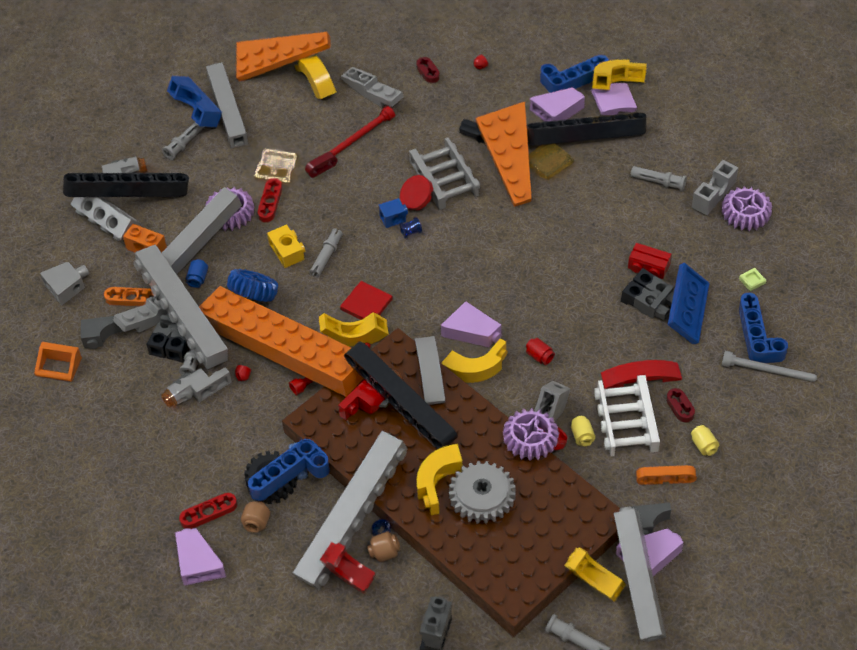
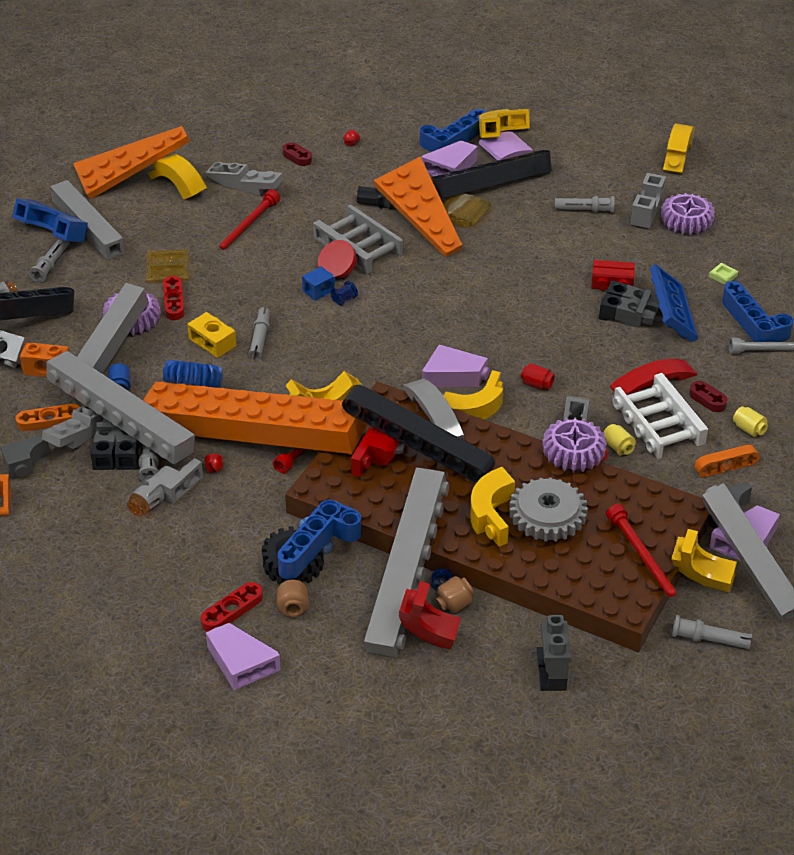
camera: 20 degrees left, 10 degrees down
(321, 164) = (218, 254): dark red beam -> none
(365, 300) = (323, 369): red tile -> none
(538, 513) = (618, 516): none -> red piece
(768, 131) = (679, 142): none -> yellow arch

